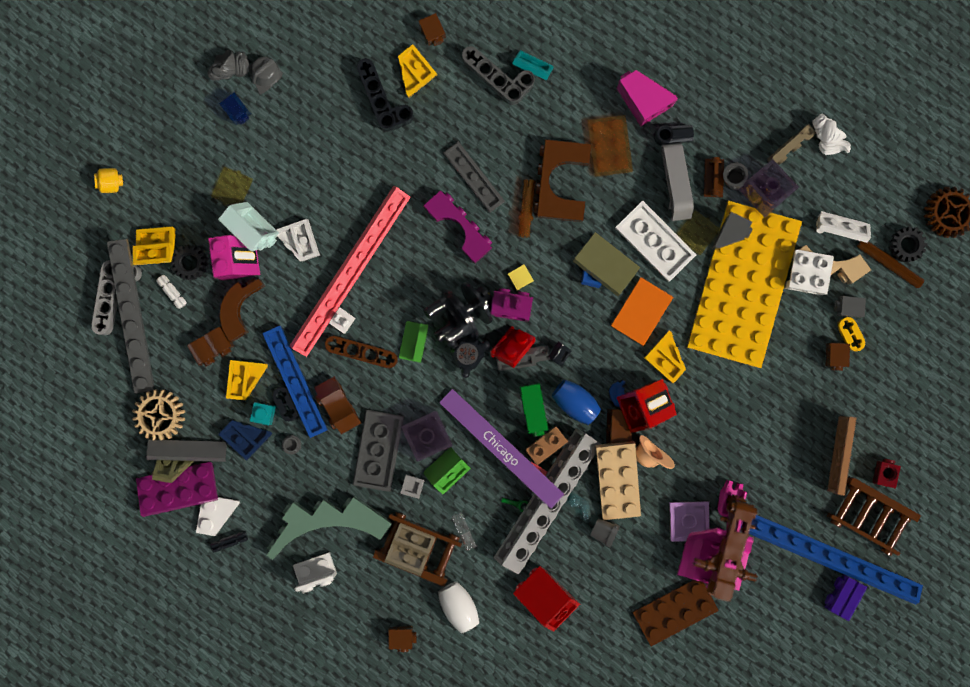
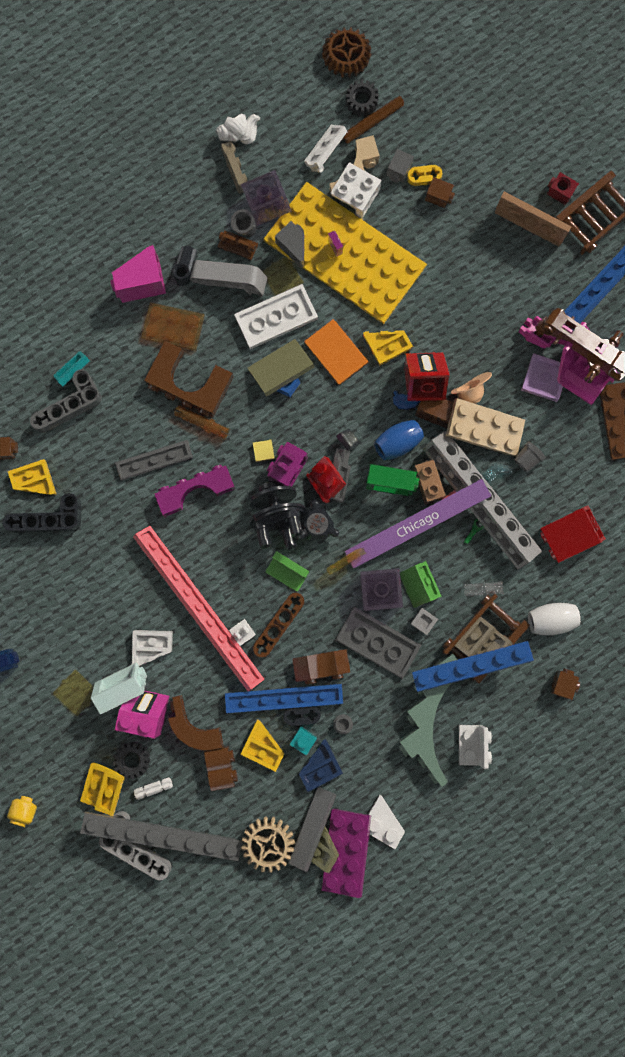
camera: 70 degrees left, 5 degrees down
(229, 541) = (415, 819): black axle -> none
(385, 545) = (472, 666): none -> blue plate
(442, 393) = (345, 561): none -> clear yellow tile
(747, 272) = (335, 243): none -> magenta tile

